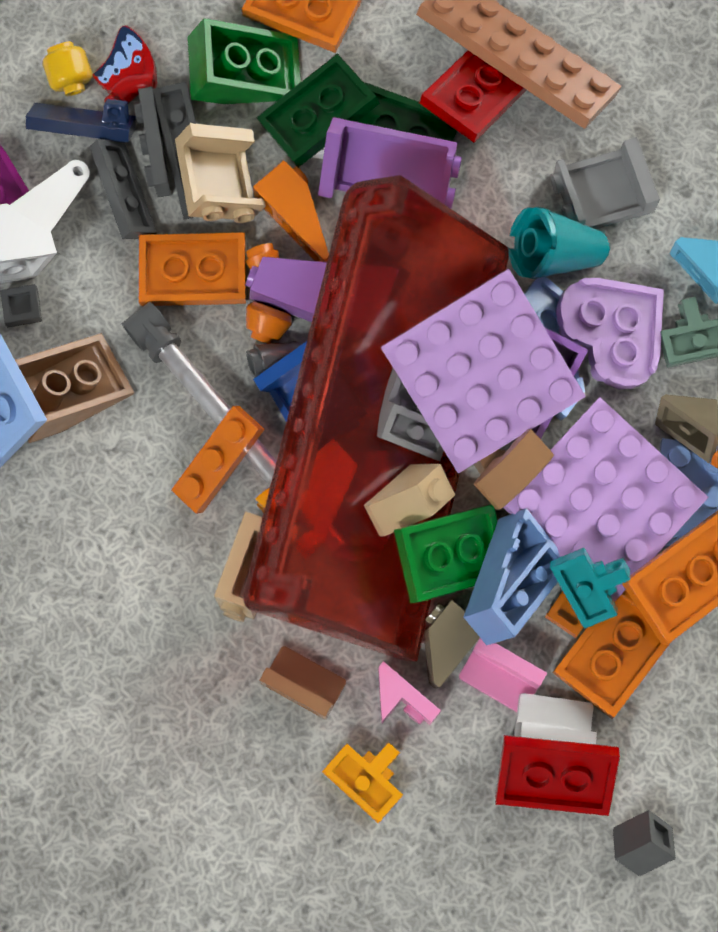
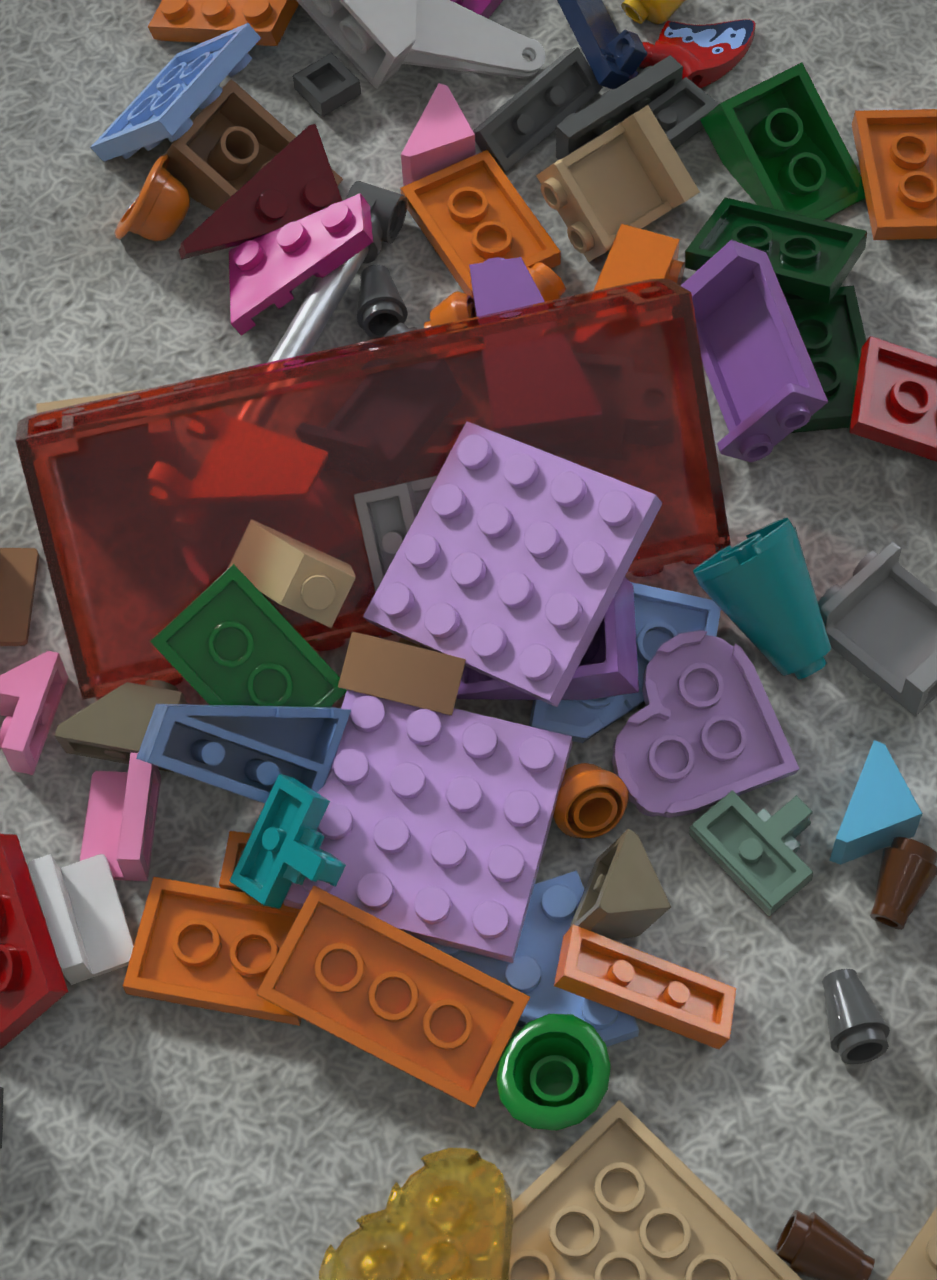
camera: 65 degrees right, 15 degrees down
(62, 460) = (158, 207): none -> orange hat
(107, 376) = (282, 192): none -> dark red wing
(112, 256) = (438, 139): none -> bright pink slope
(160, 393) = (279, 261): none -> dark pink wing
(217, 356) = (379, 302): none -> dark grey cone
(217, 459) = (234, 348): orange plate -> none
(630, 405) = (590, 801): none -> orange cone

